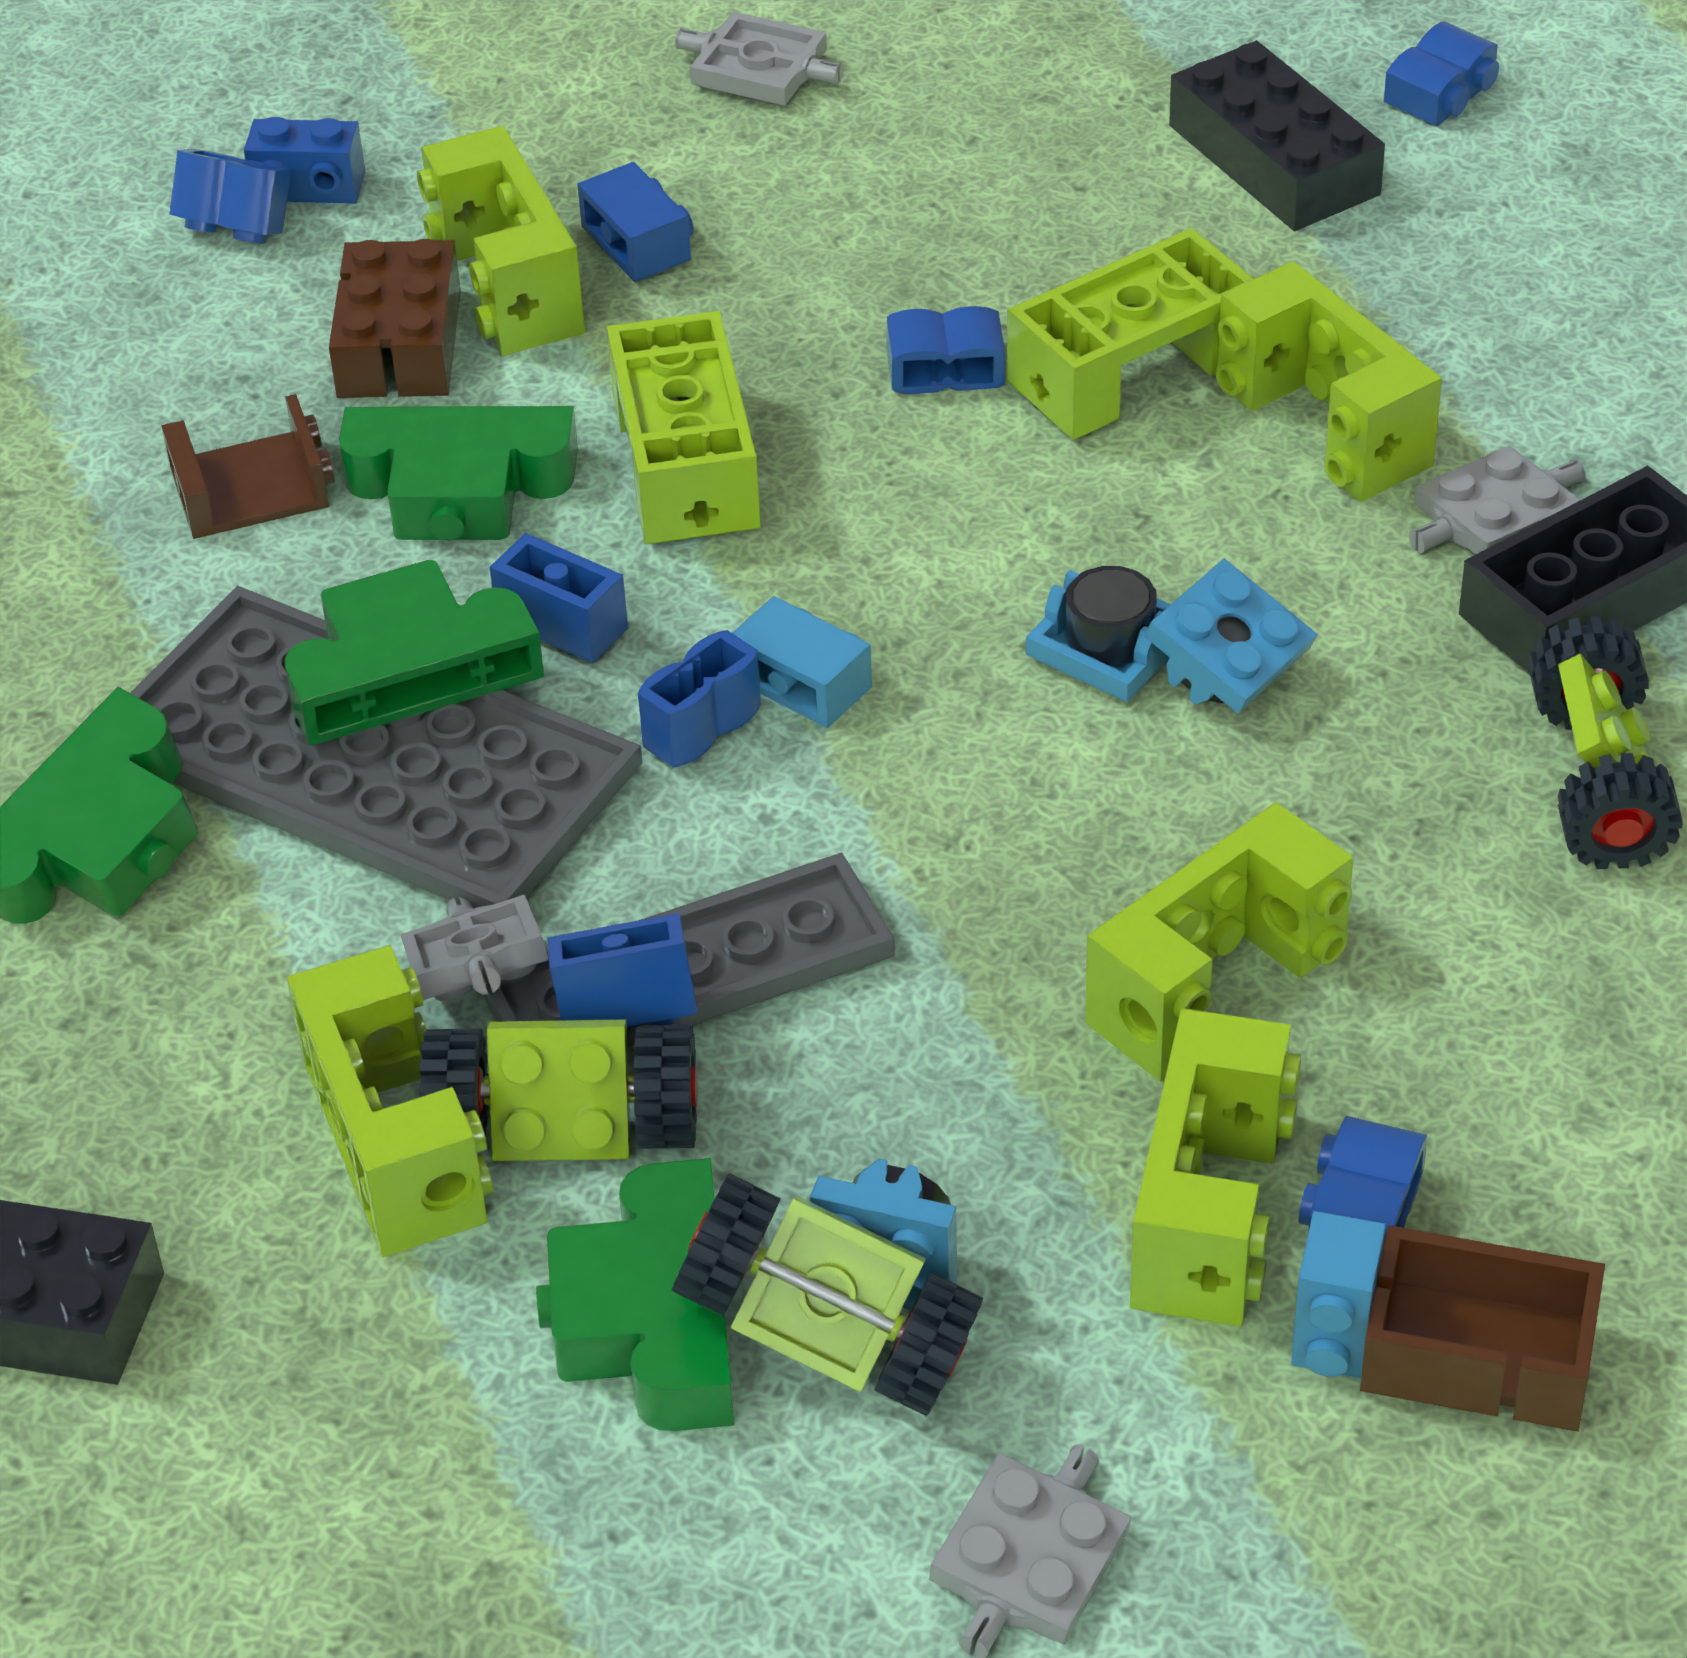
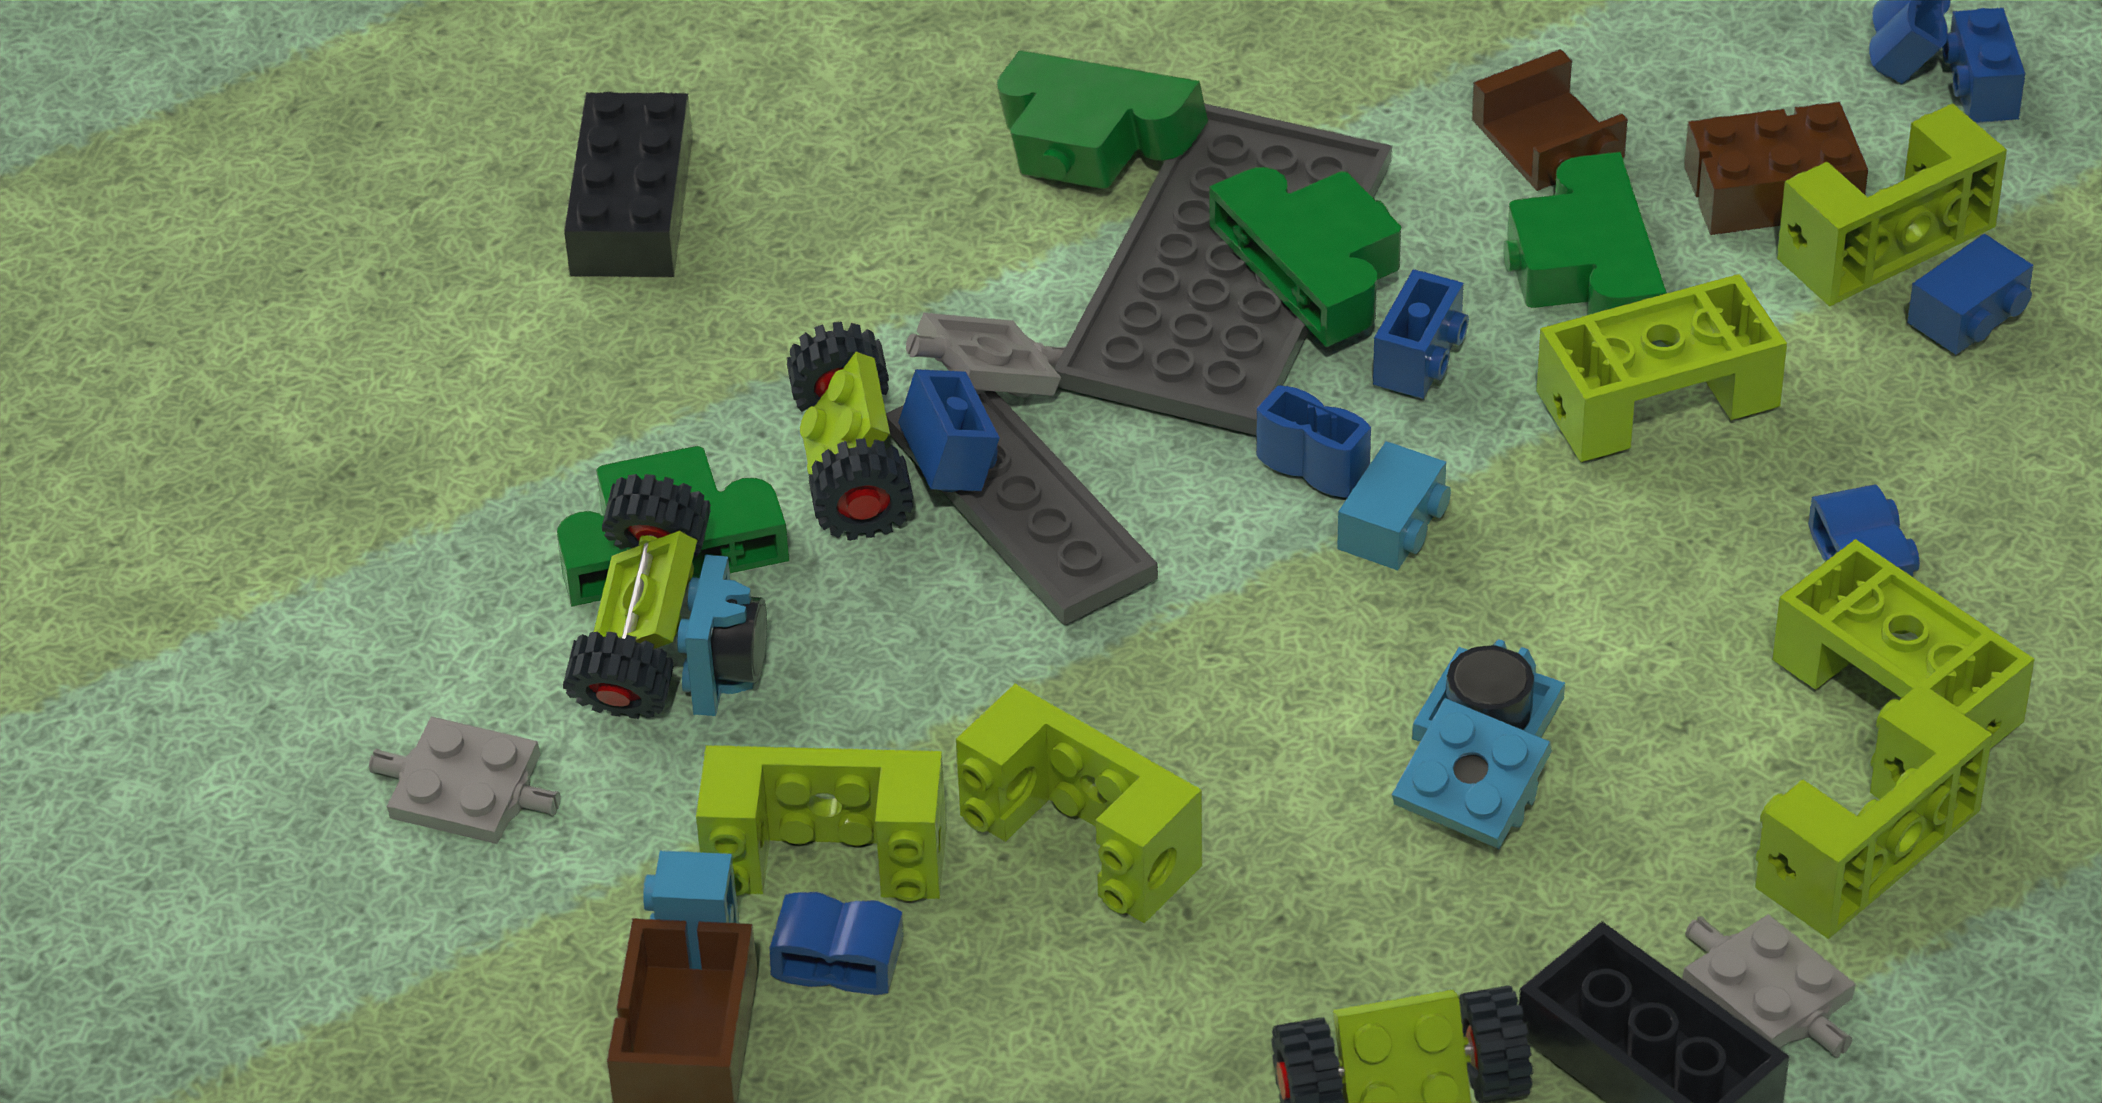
camera: 80 degrees right, 0 degrees up
(409, 1161) = (751, 332): lime plate -> none

